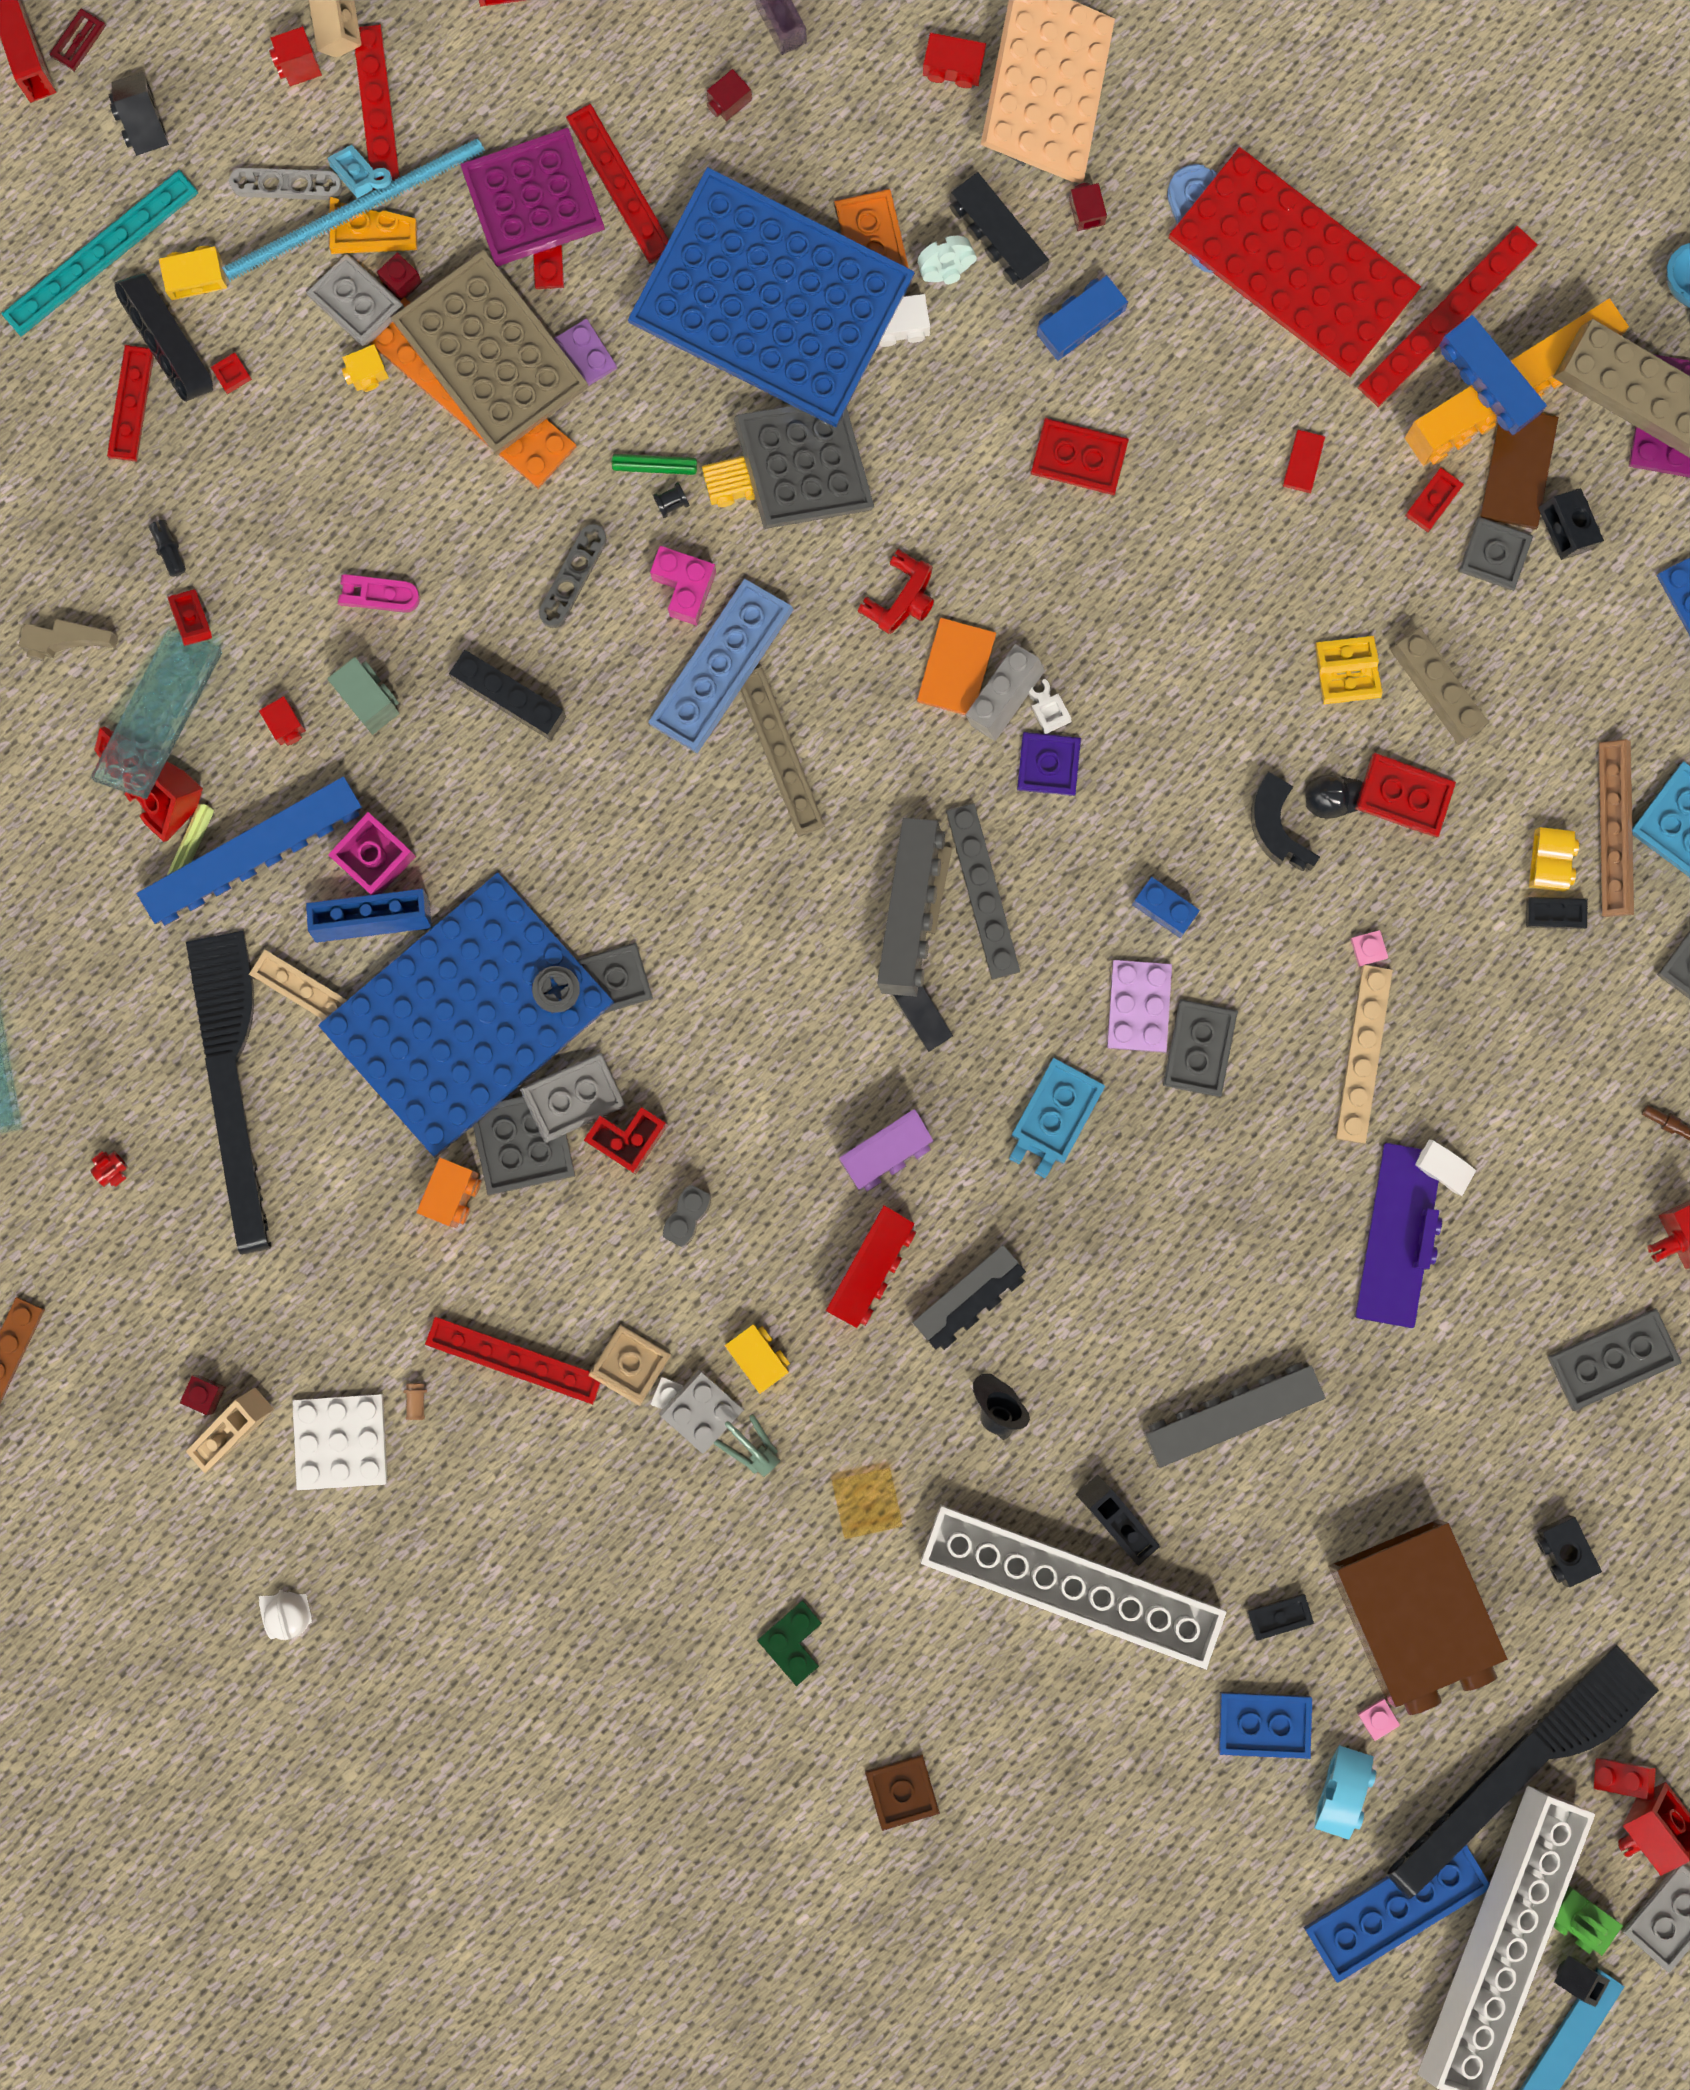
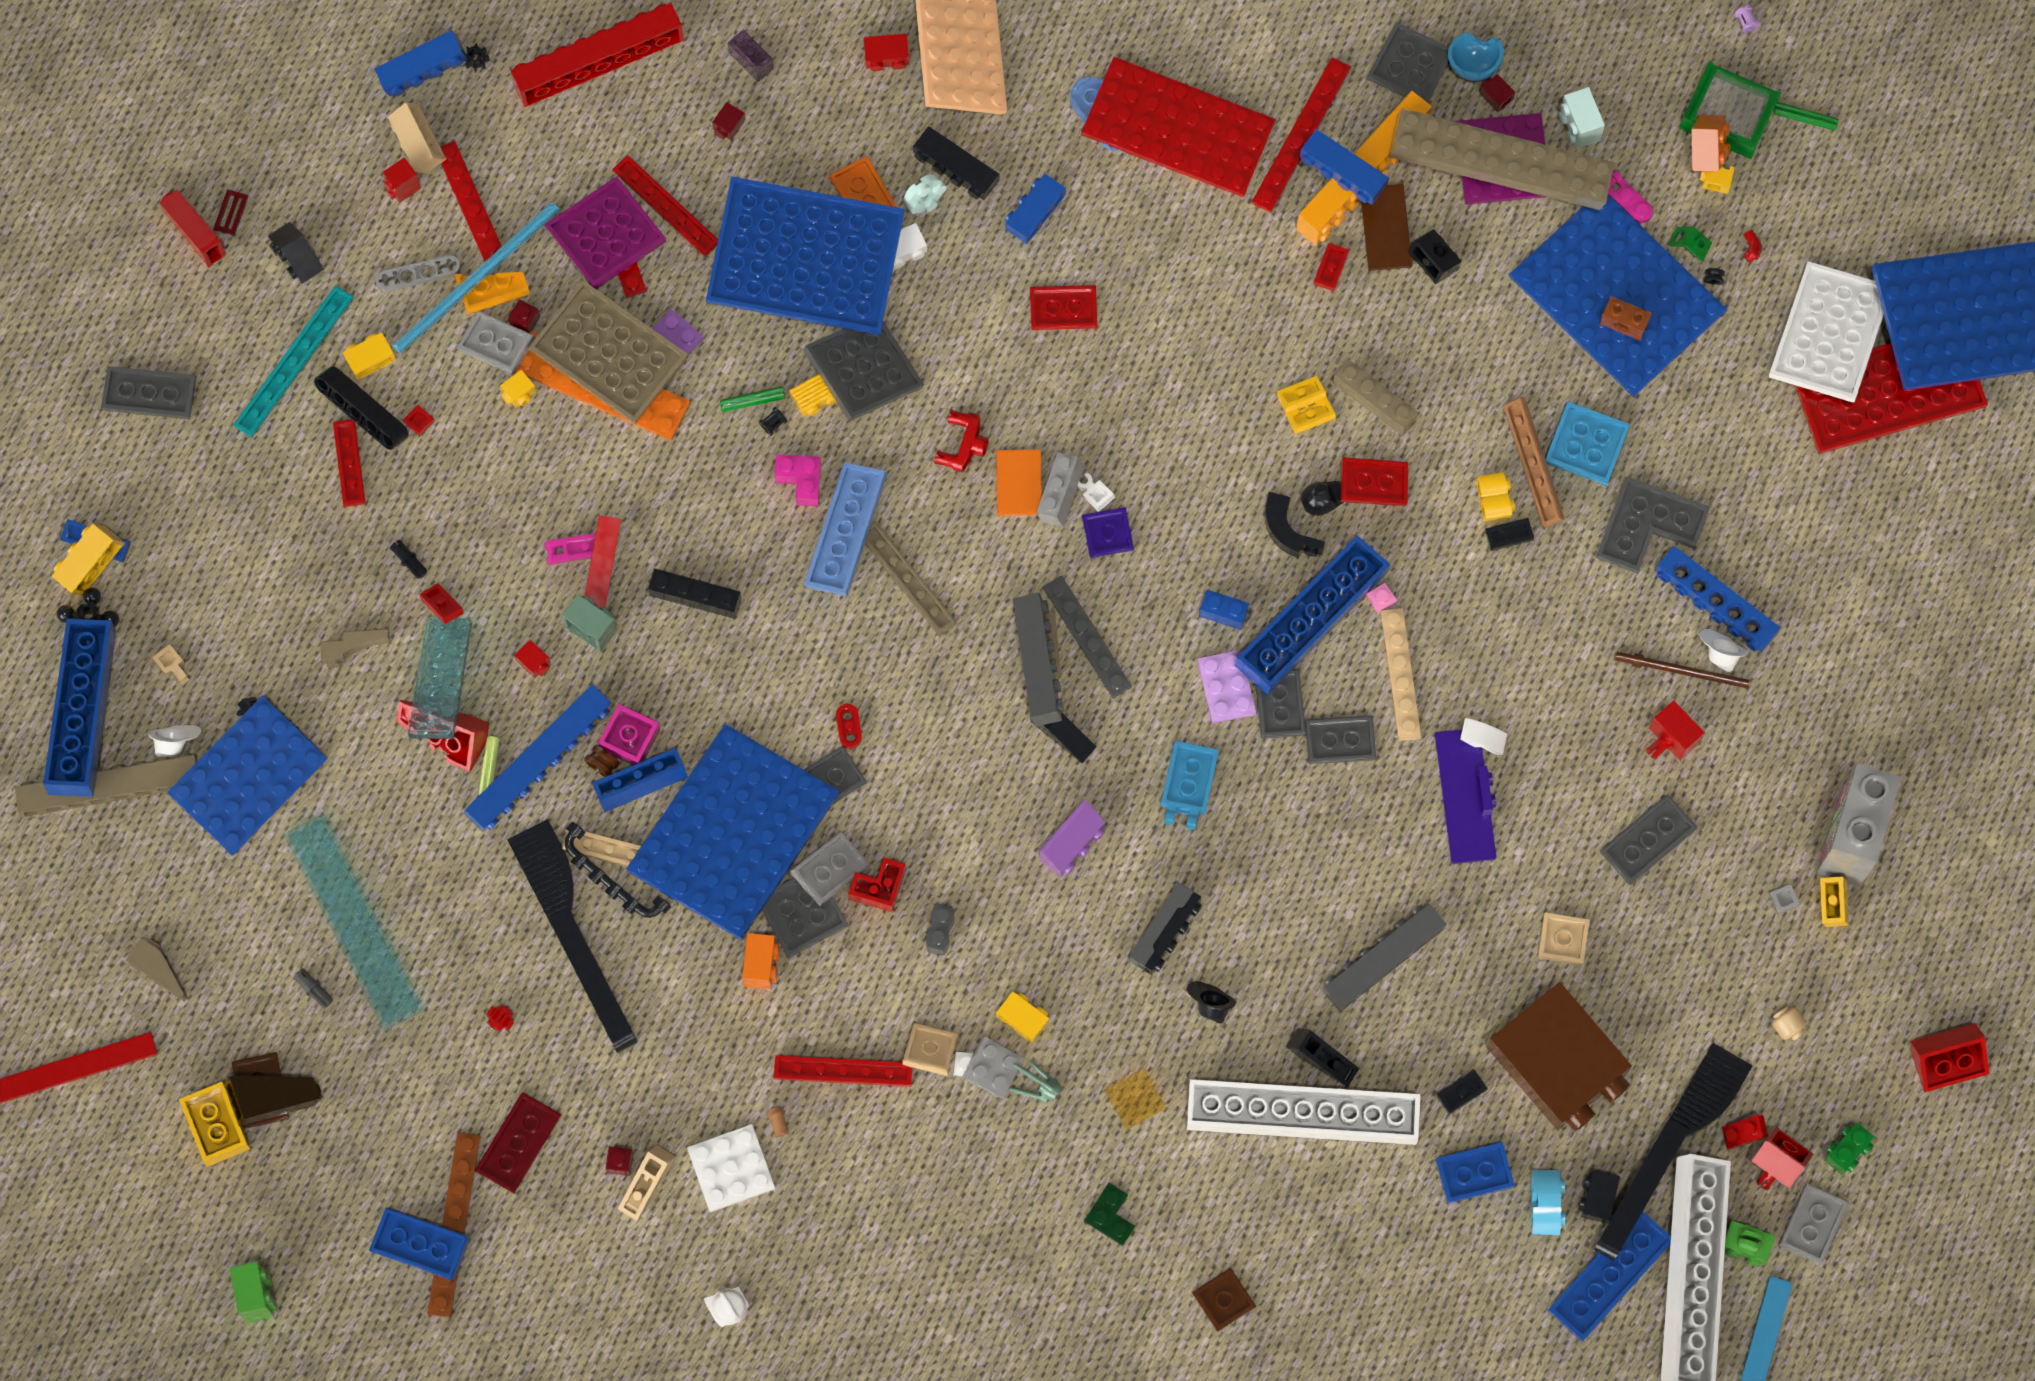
camera: 20 degrees left, 10 degrees down
(87, 1331) = (518, 1143): none -> dark red tile
(284, 1022) = (613, 889): none -> black bar
(329, 877) = (601, 760): none -> reddish brown wheel
(357, 172) = (470, 250): medium azure hinge -> none
(404, 619) = (602, 559): none -> red tile
(562, 977) = (795, 782): dark grey gear -> none
(568, 574) = (716, 496): dark grey beam -> none
(650, 920) = (849, 727): none -> red plate
(870, 1267) = (1086, 927): red slope -> none
(1087, 206) = (1015, 128): dark red brick -> none
(1262, 1116) = (1340, 739): none -> dark grey tile
(1275, 947) = (1312, 615): none -> blue brick
(1304, 461) = (1228, 266): red tile -> none
(1378, 1719) = (1556, 1145): bright pink plate -> none
(1413, 1804) = (1599, 1197): none -> black brick
(1468, 1457) = (1563, 938): none -> tan plate
(1496, 553) = (1387, 292): dark grey tile -> none
(1581, 1564) = (1653, 971): black brick -> none
(1581, 1980) = (1759, 1285): black brick -> none
(1614, 261) = (1409, 63): none -> dark grey plate

